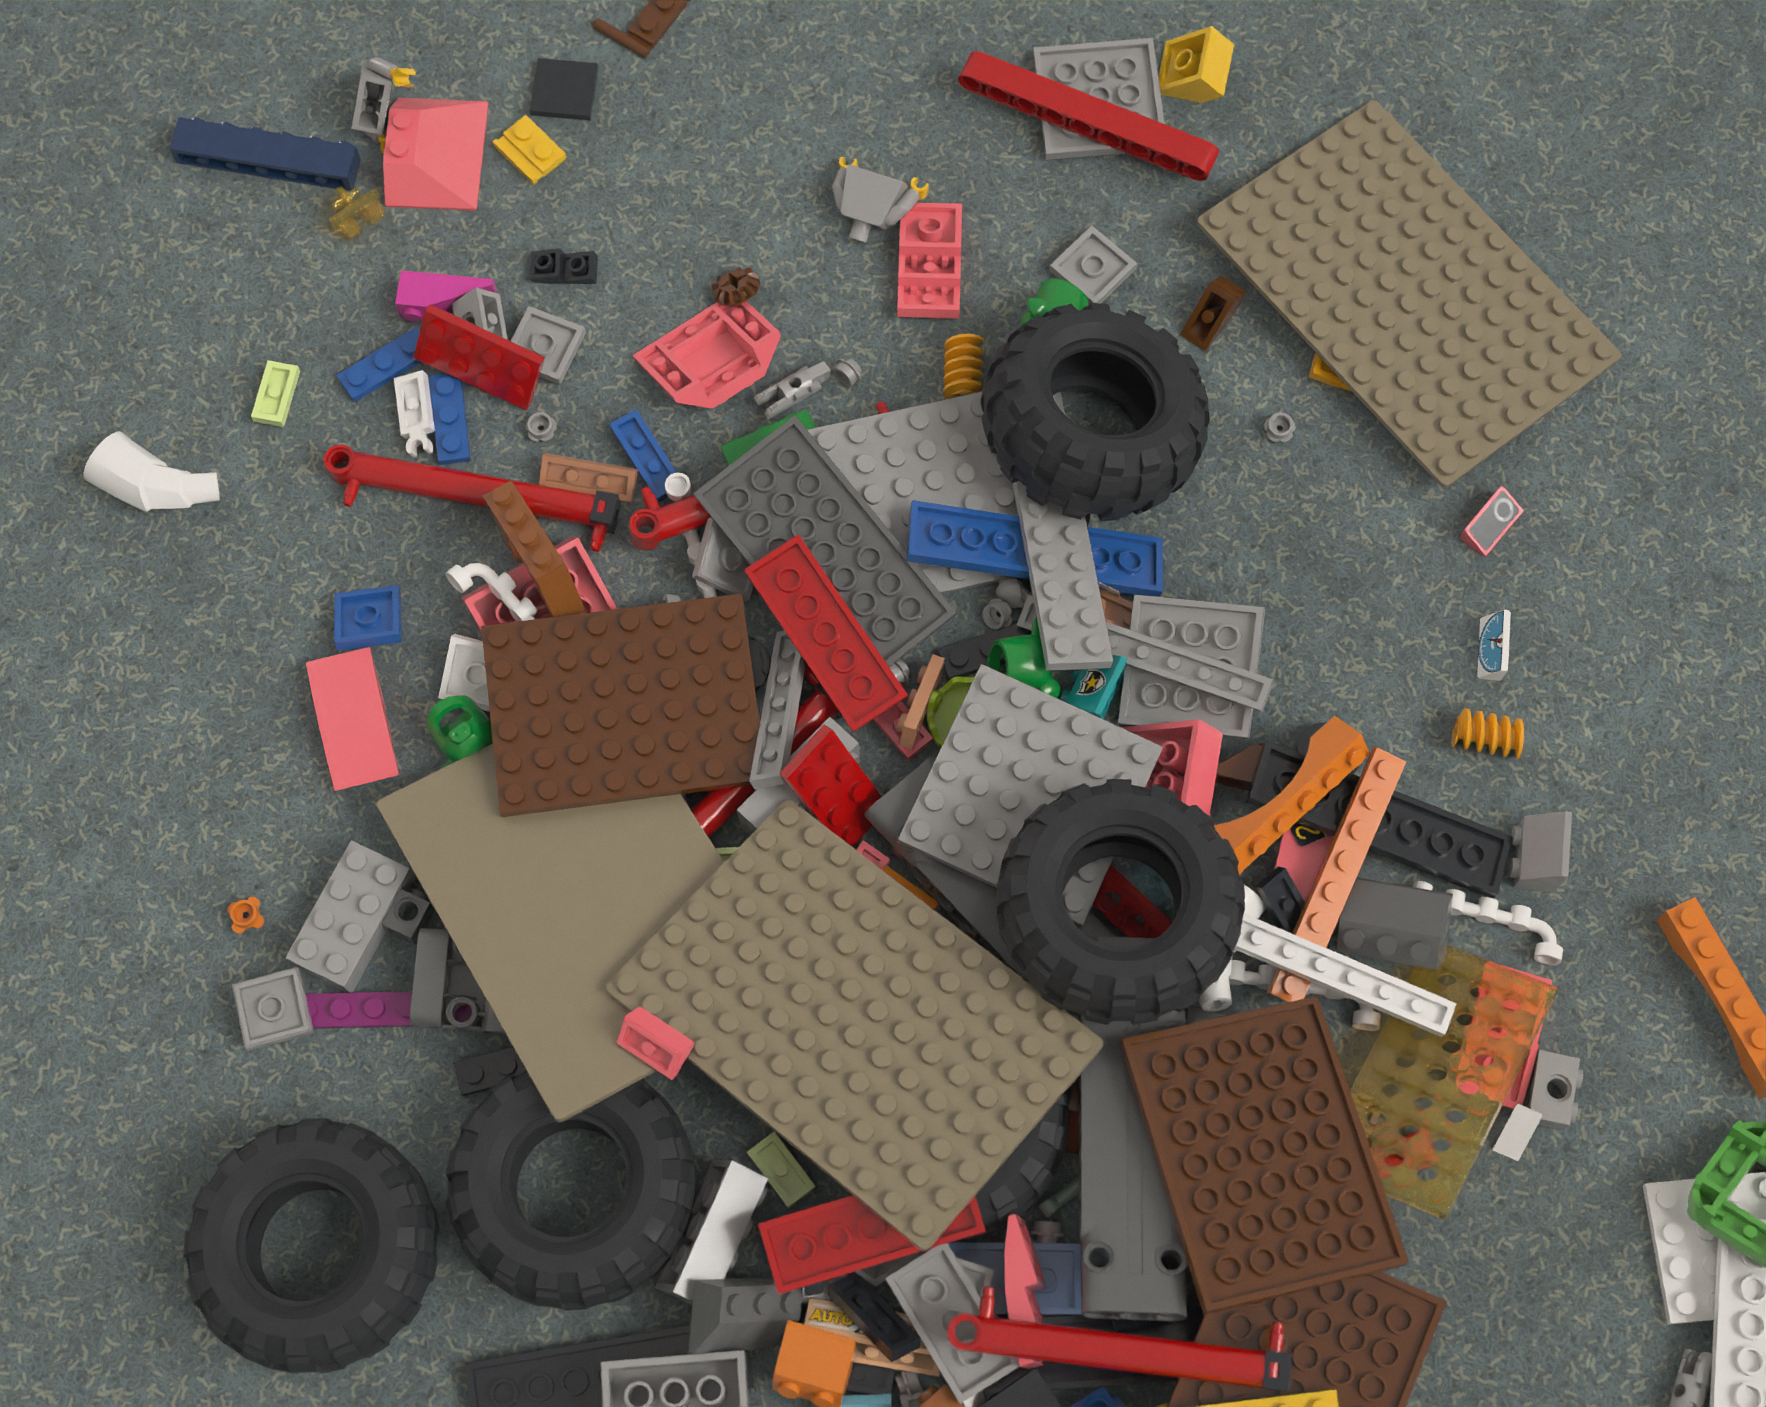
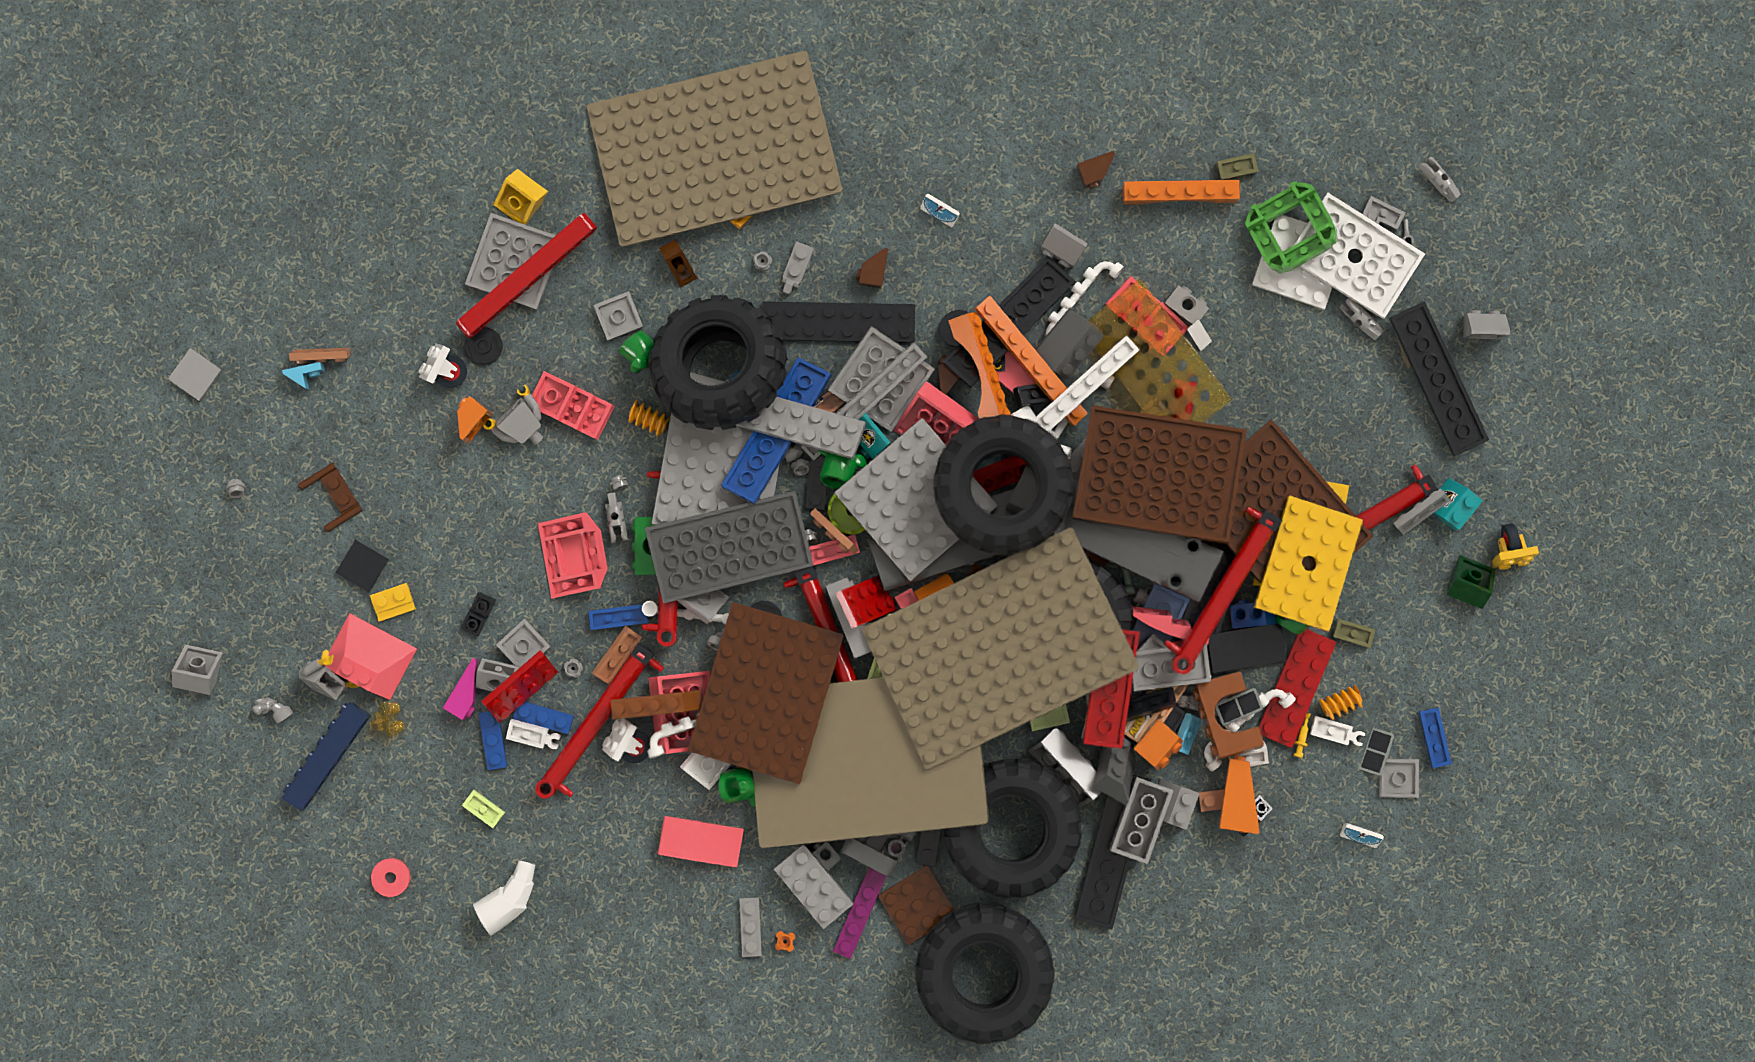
camera: 65 degrees left, 15 degrees up
(119, 297) = (379, 880): none -> coral tile
(248, 853) = (750, 927): none -> light grey plate
(272, 1008) = (846, 946): light grey tile -> none
(308, 50) = (266, 704): none -> light grey arm
(367, 617) = (646, 810): blue plate -> none
(388, 1091) = (916, 904): none -> reddish brown plate
(459, 543) = (627, 742): none -> white plate
(654, 1042) = (968, 755): coral slope -> none
(727, 295) = (540, 515): reddish brown gear -> none
(778, 714) = (805, 609): light grey plate -> none
(826, 633) = (776, 567): red plate -> none
(842, 131) = (471, 418): none -> orange slope
(899, 74) = (443, 368): none -> white plate
(961, 120) = (484, 346): none -> black tile
(1248, 574) = (841, 320): none -> black plate
(1295, 479) = (796, 266): none -> light grey hinge
(1351, 588) = (873, 270): none -> reddish brown slope
(1489, 732) = (986, 239): light orange piece -> none
(1492, 522) = (870, 174): slope -> none
(1688, 849) = (1094, 169): none -> reddish brown slope

